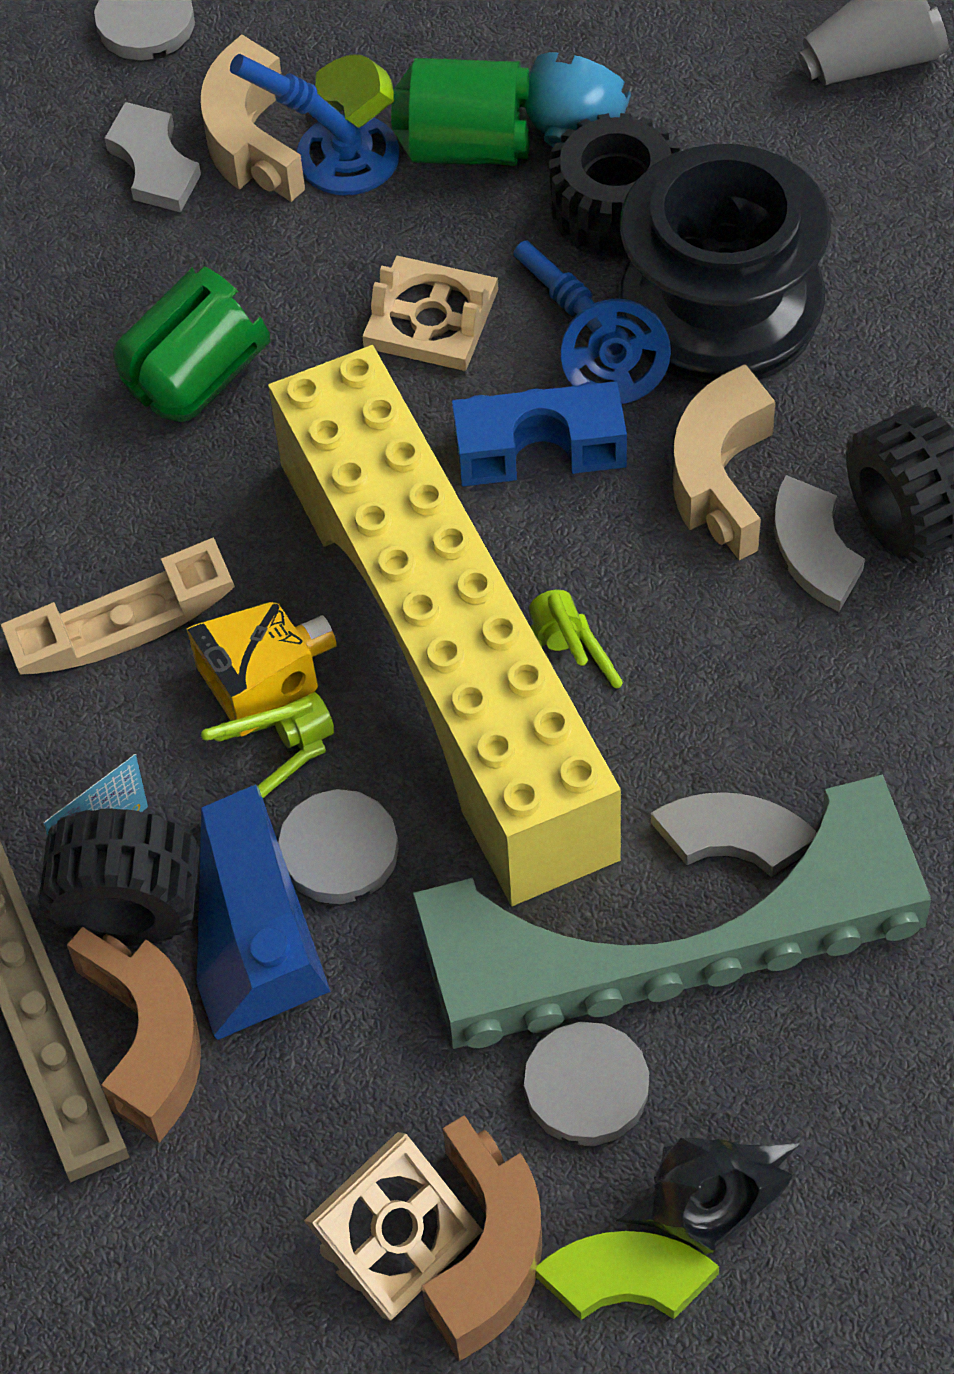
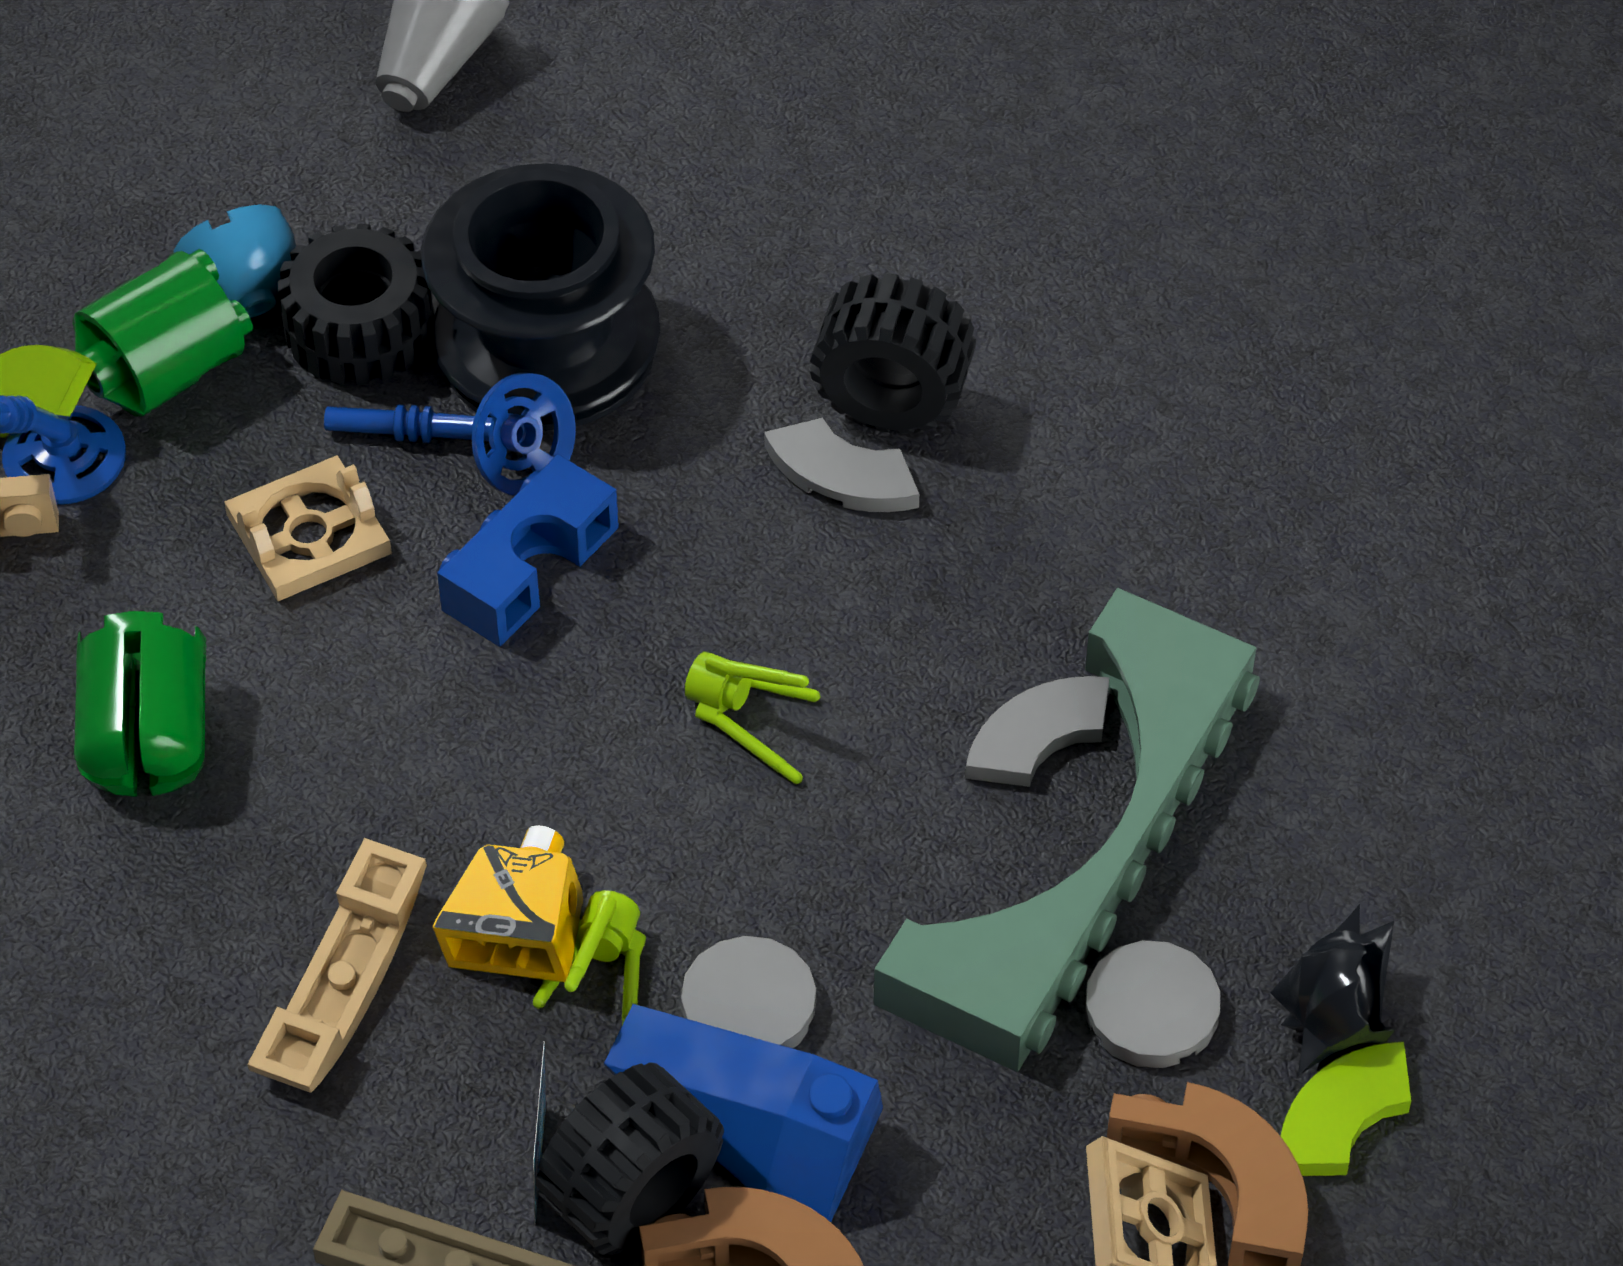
camera: 50 degrees left, 5 degrees down
(503, 718) = (840, 789): light yellow arch -> none
(713, 429) = (694, 477): tan arch -> none

